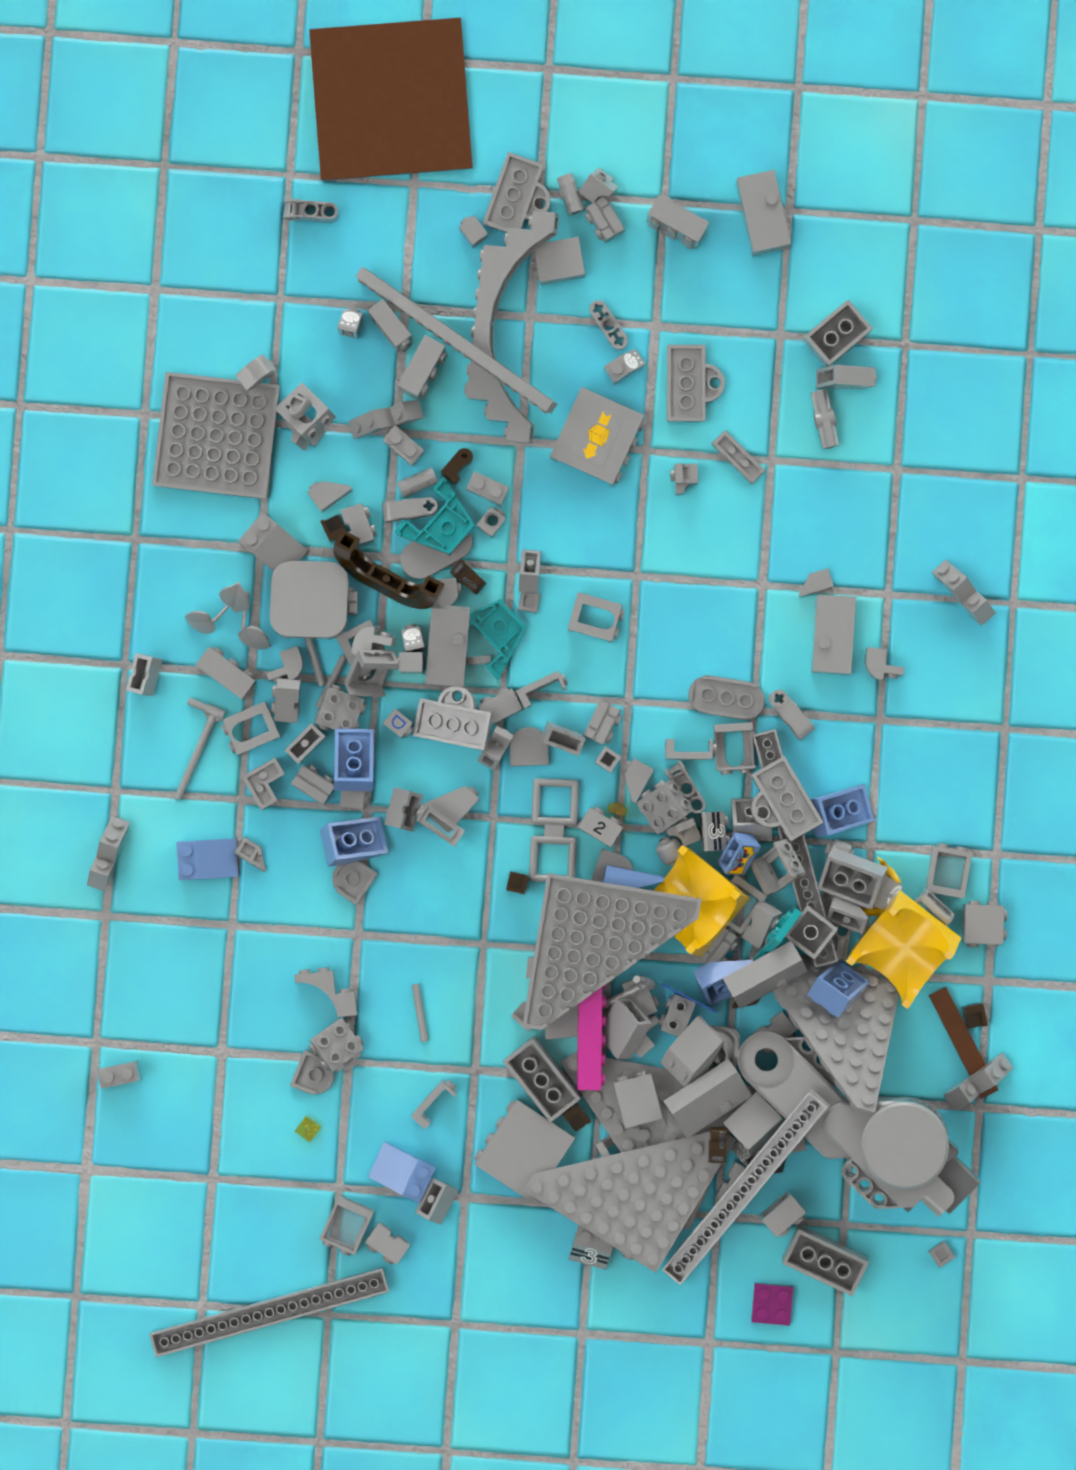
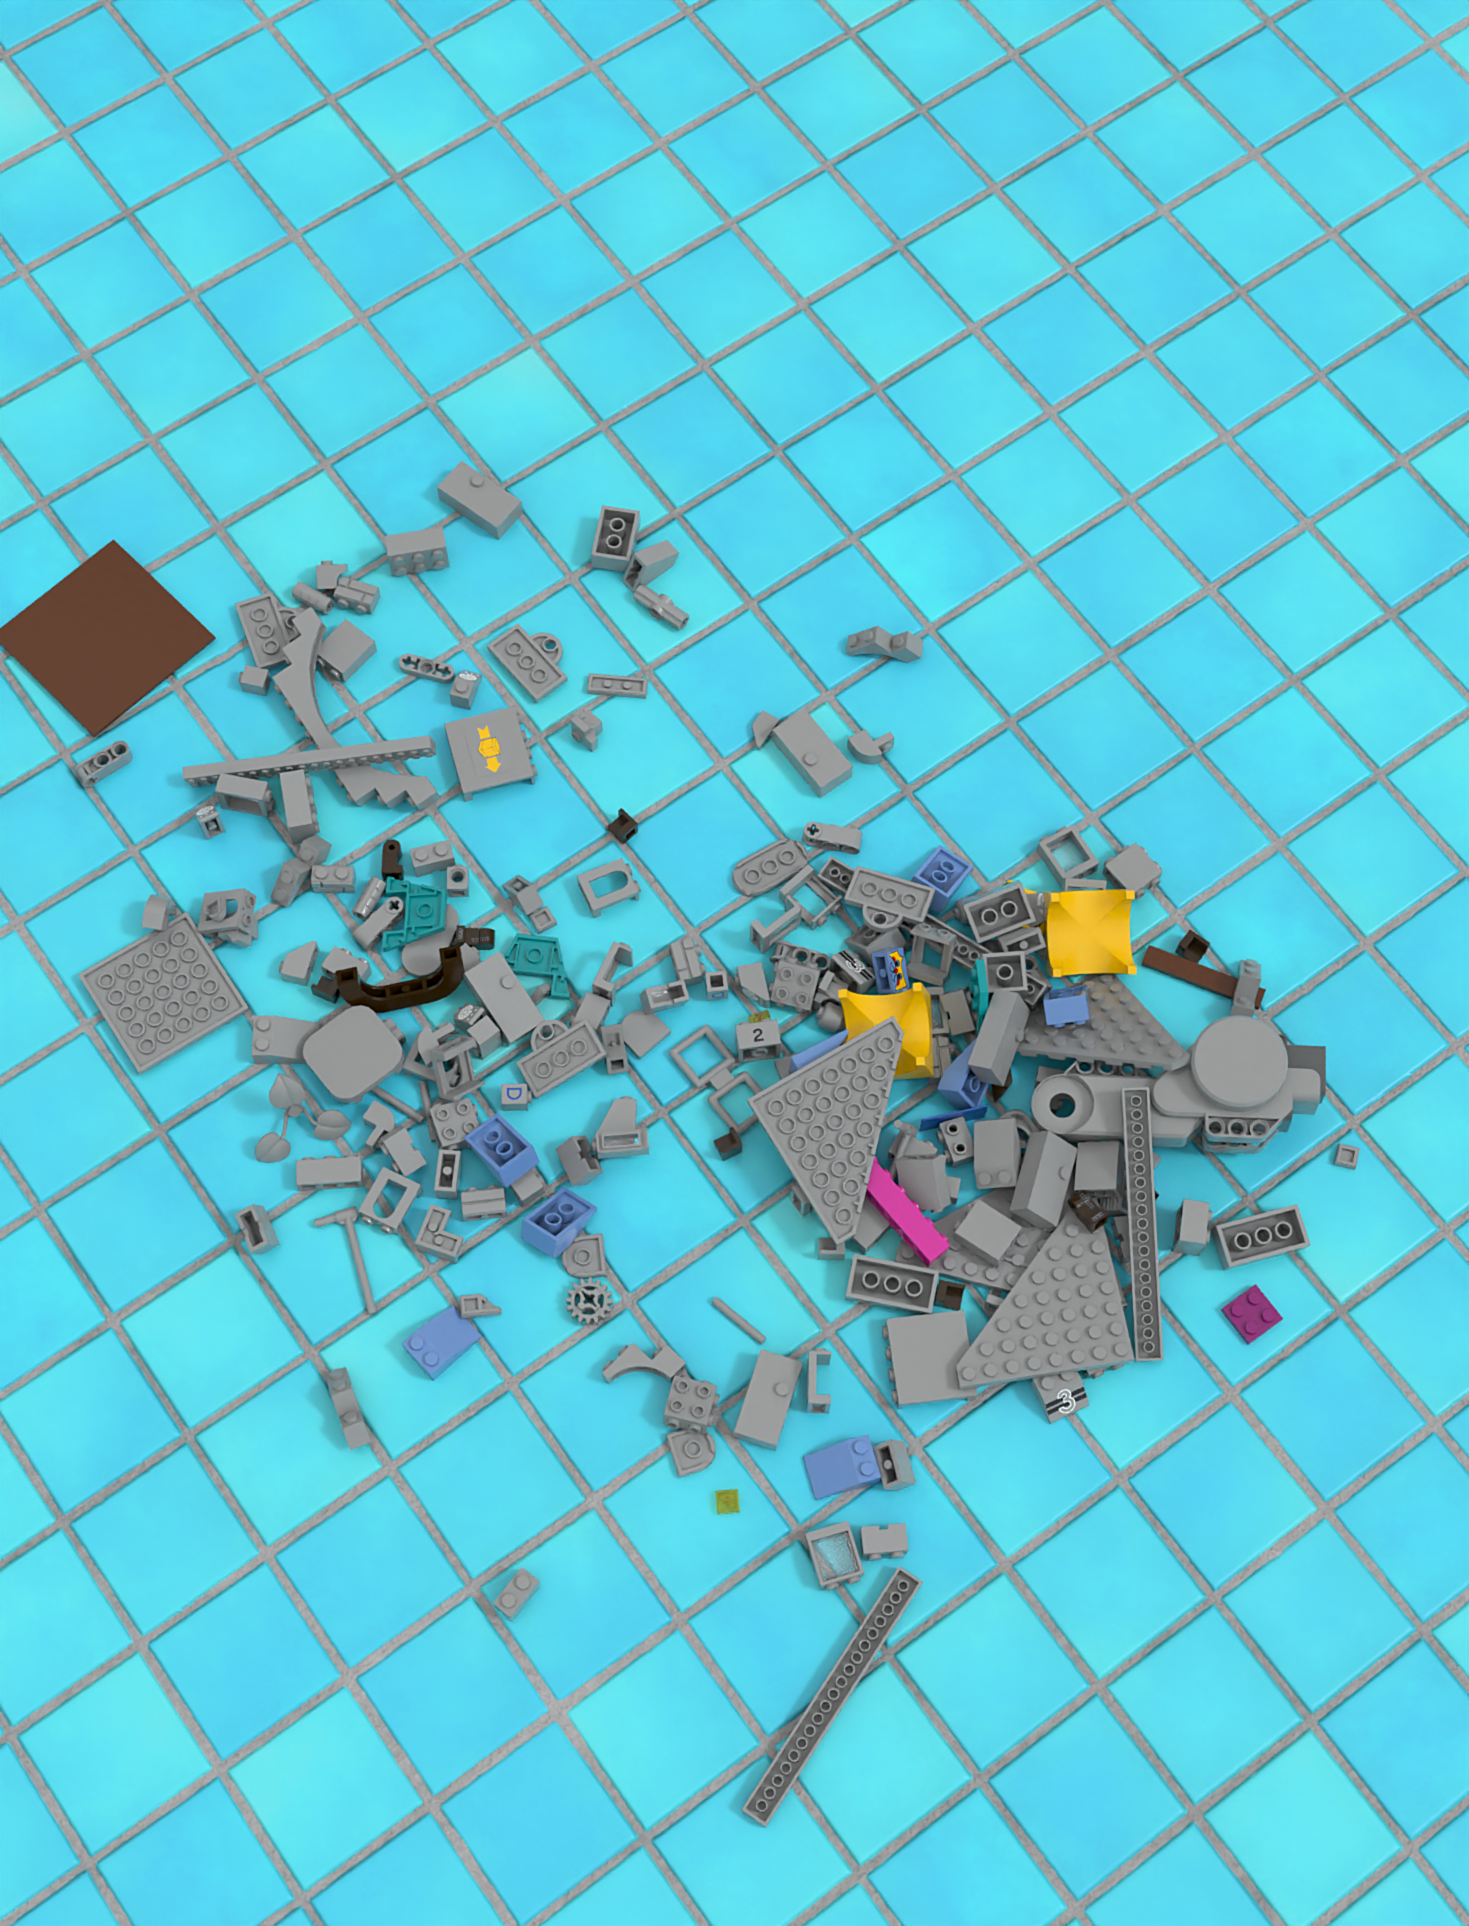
camera: 40 degrees left, 20 degrees down
(320, 915) = (583, 1308): none -> light grey gear
(391, 1085) = (768, 1400): none -> light grey brick
(645, 577) = (623, 827): none -> dark brown panel

